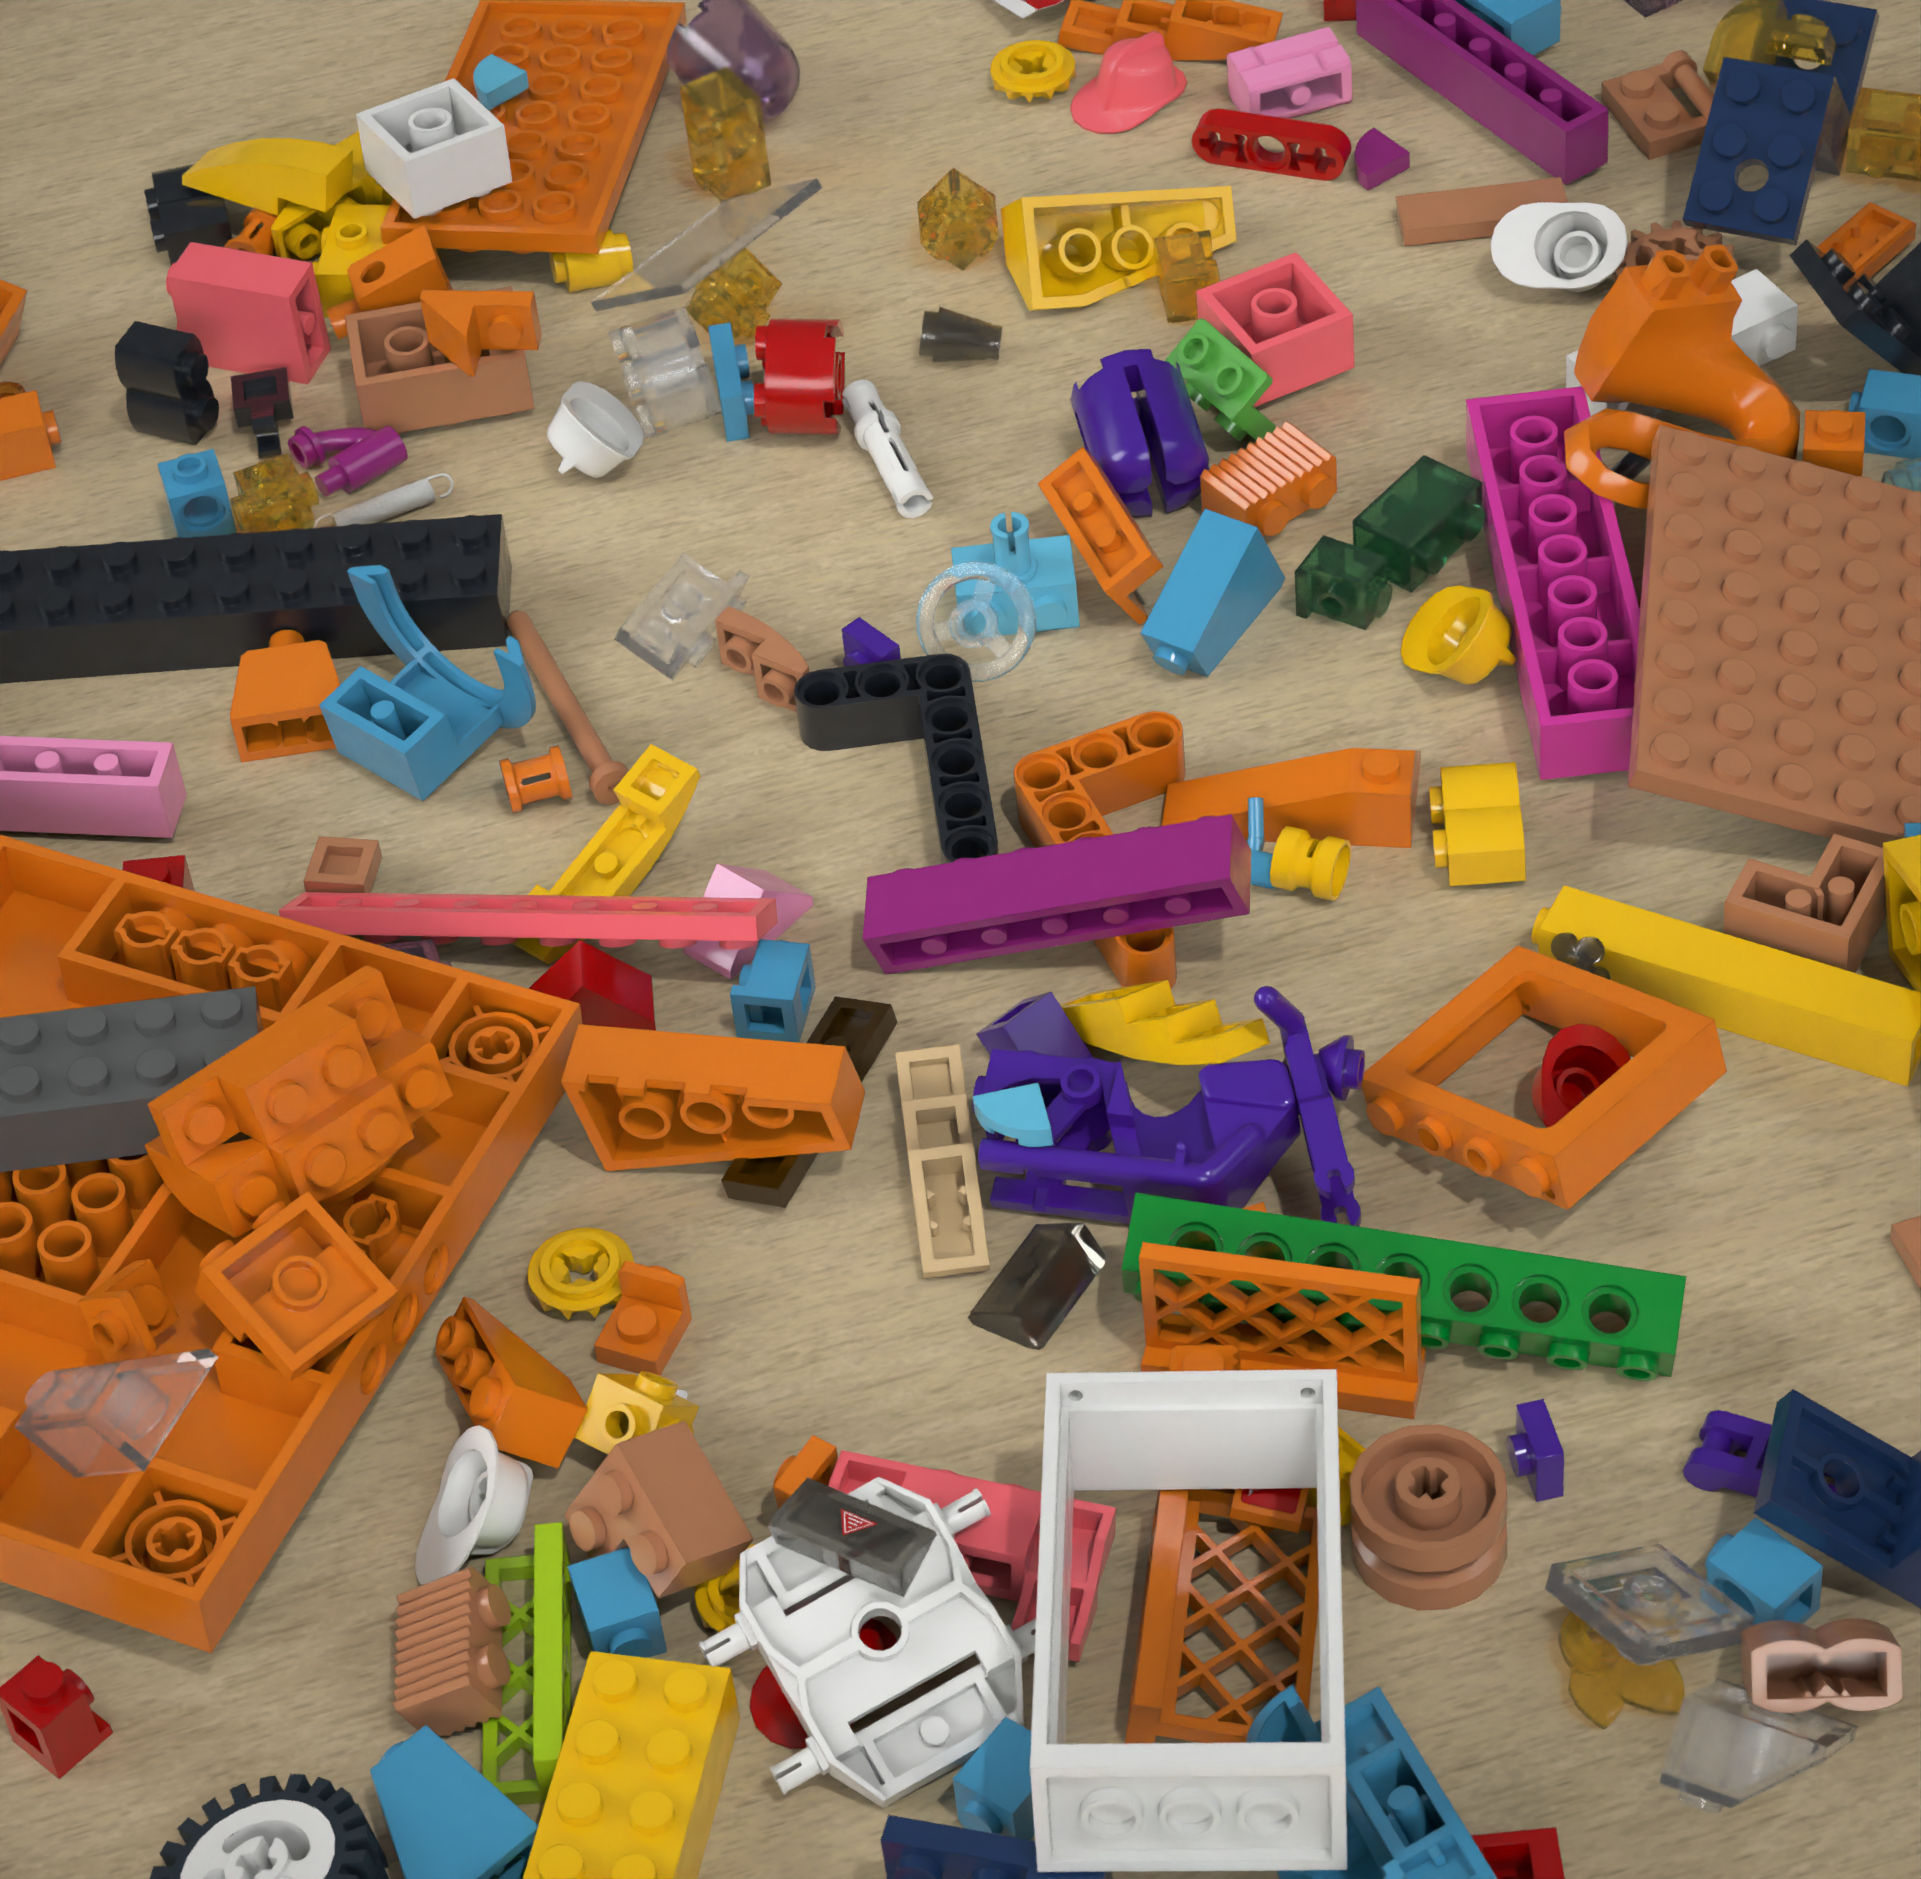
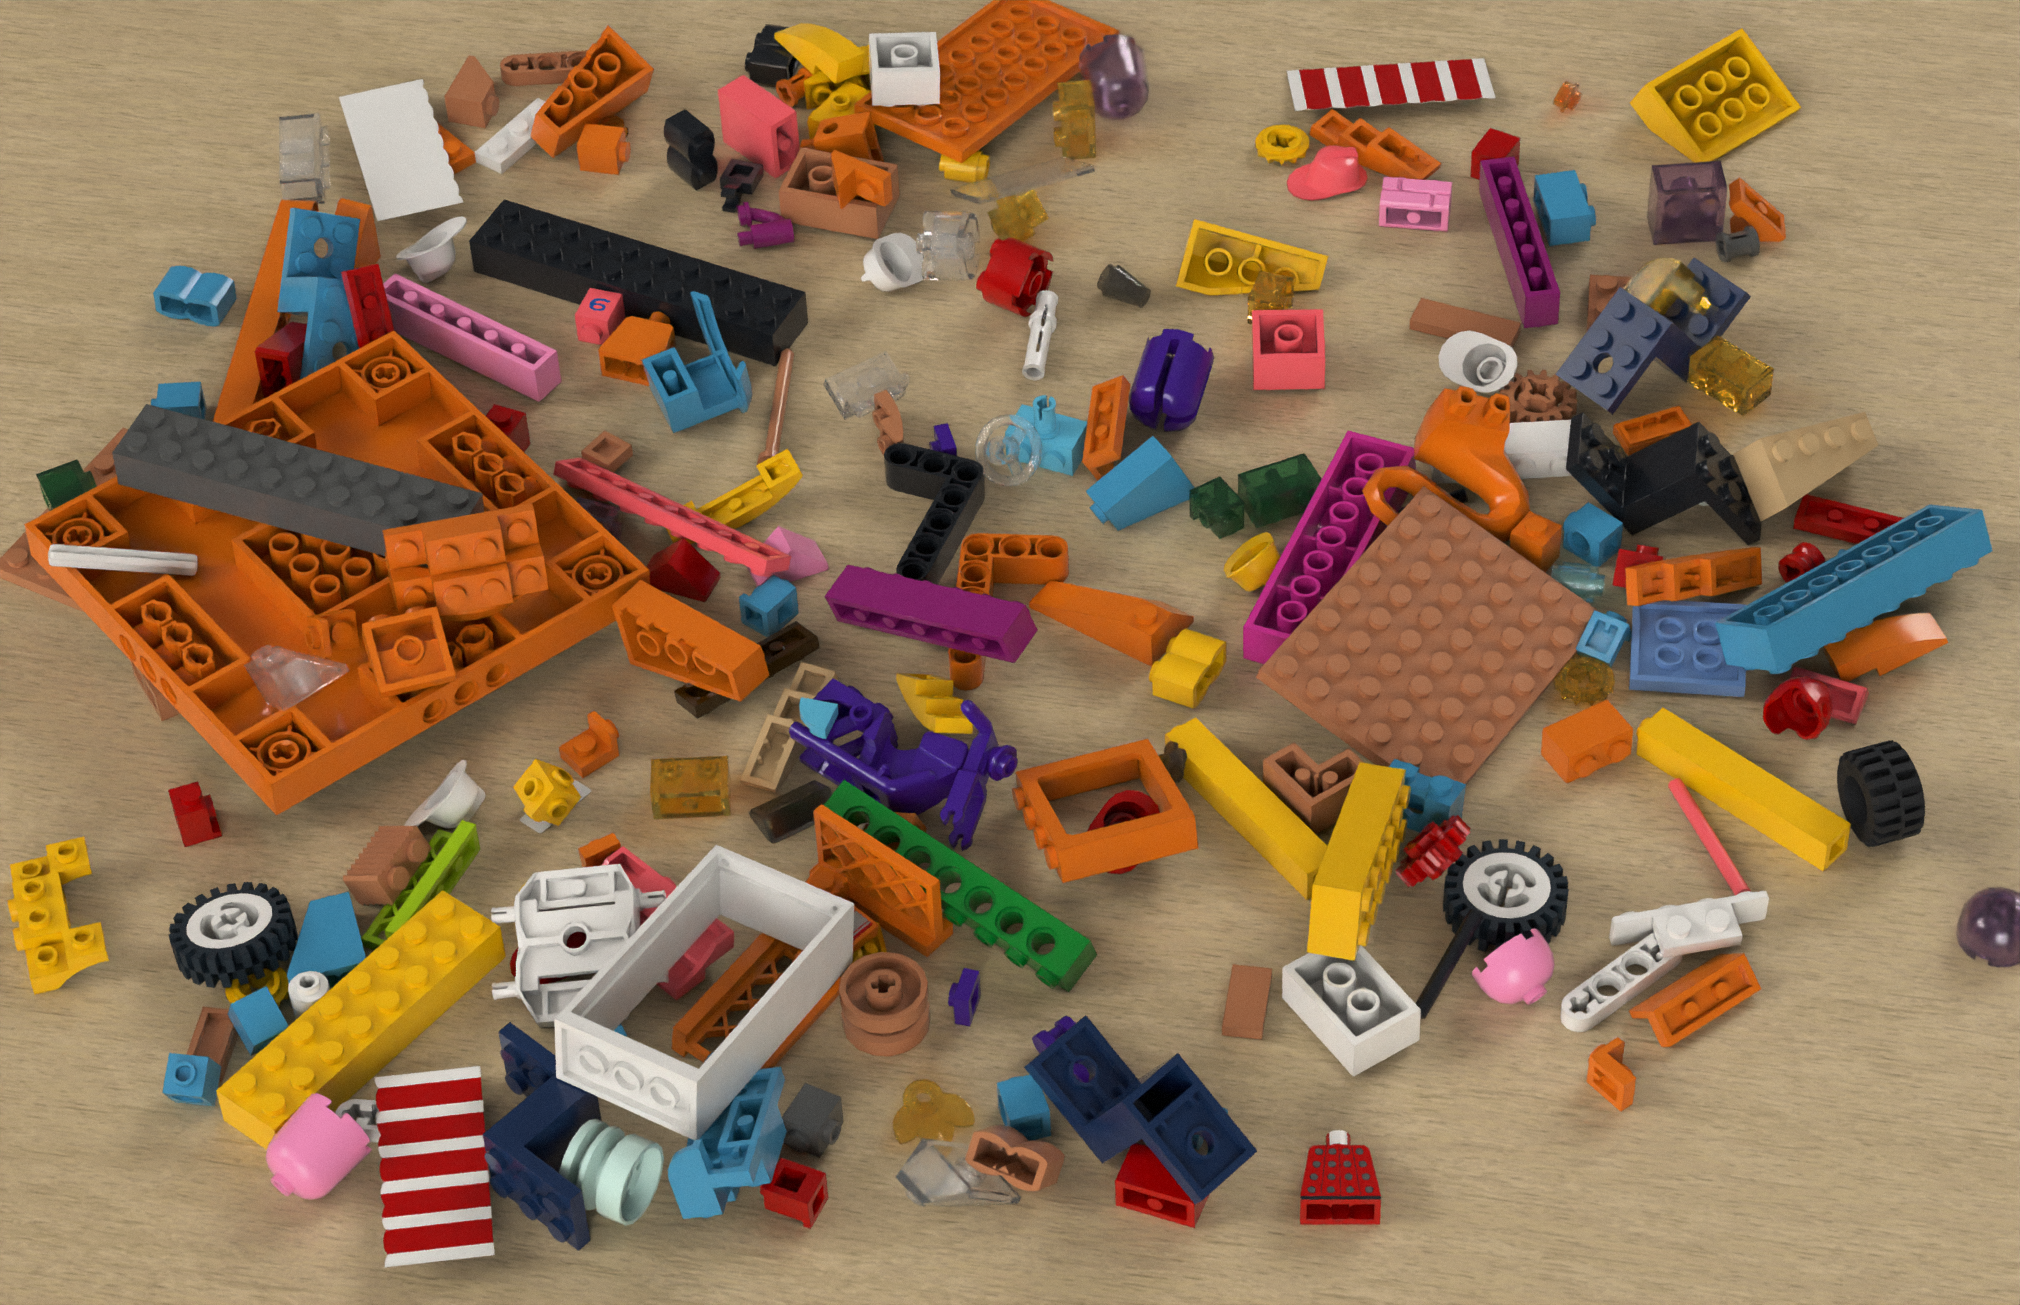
camera: 25 degrees right, 0 degrees up
(187, 675) = (599, 315): none -> coral brick
(197, 495) = (668, 221): dark azure brick -> none
(271, 493) = (707, 234): clear yellow brick -> none
(388, 504) = (763, 263): white piece -> none
(498, 81) = (977, 40): medium azure tile -> none
(509, 1386) = (500, 749): orange slope -> none
(550, 764) = (722, 438): orange bush -> none
(580, 1251) = (587, 697): yellow gear -> none
(617, 1606) = (479, 877): dark azure brick -> none
(665, 1507) = (517, 837): nougat brick -> none
(730, 367) = (979, 263): dark azure plate -> none
(852, 1536) = (585, 885): clear smoke slope -> none
(858, 1316) = (690, 787): none -> clear yellow brick
(957, 220) = (1168, 218): clear yellow brick -> none
(1035, 1026) = (879, 684): dark purple brick -> none
(1223, 377) = (1235, 370): bright green bracket -> none
(1259, 859) = (1058, 640): dark azure hand -> none
(1271, 480) = (1222, 436): orange brick -> none
(1288, 132) = (1391, 248): red beam -> none
(1310, 863) = (1081, 649): yellow wheel -> none
(1379, 159) = (1431, 271): magenta tile -> none
(1458, 1749) = (813, 1120): none -> dark grey brick
(1648, 1604) = (955, 1091): clear plate -> none

